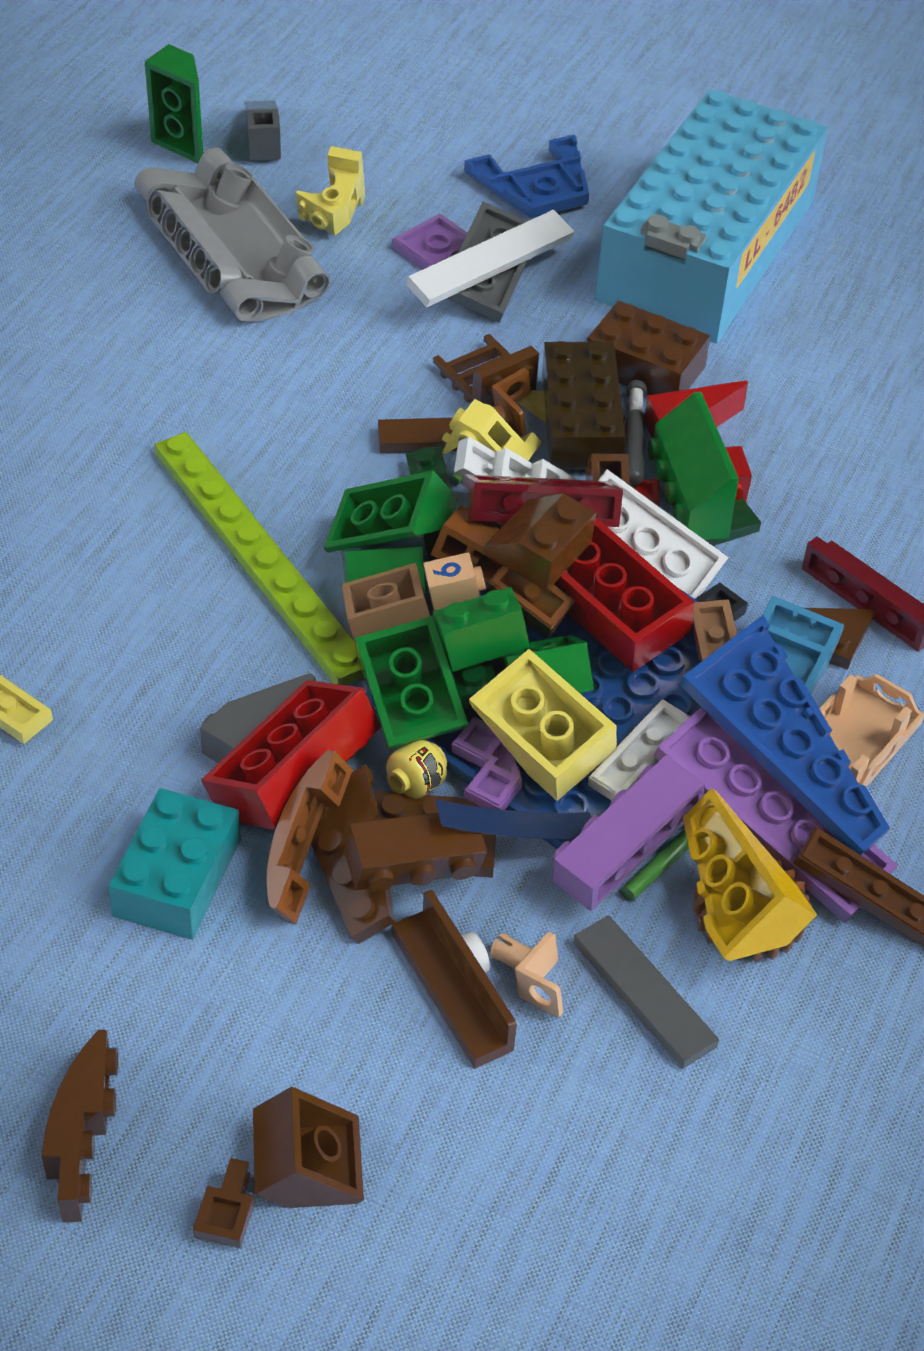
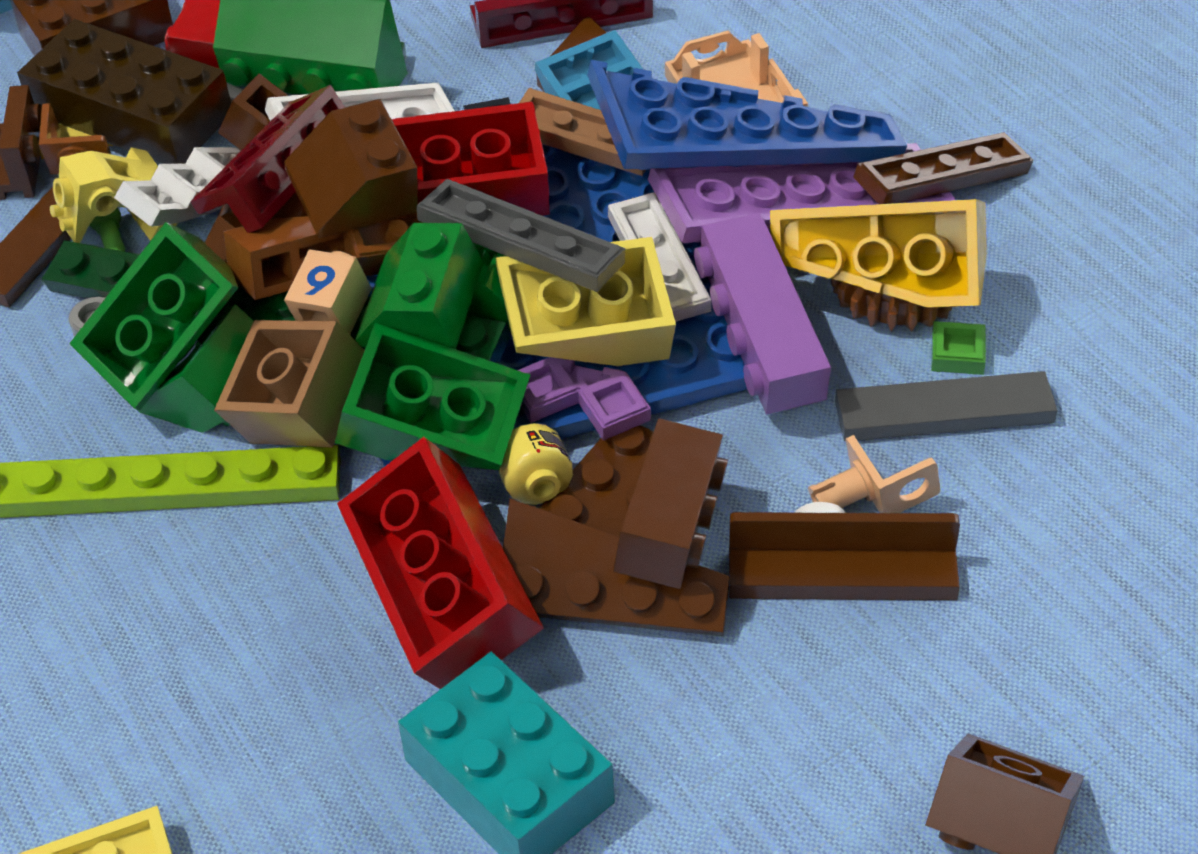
camera: 55 degrees left, 0 degrees up
(239, 717) = (343, 603): dark grey slope -> none
(294, 832) = (524, 552): dark orange slope -> none
(511, 823) = (692, 394): dark blue sticker -> none
(556, 652) = (524, 235): none -> dark grey tile
(710, 978) = (958, 347): none -> bright green tile

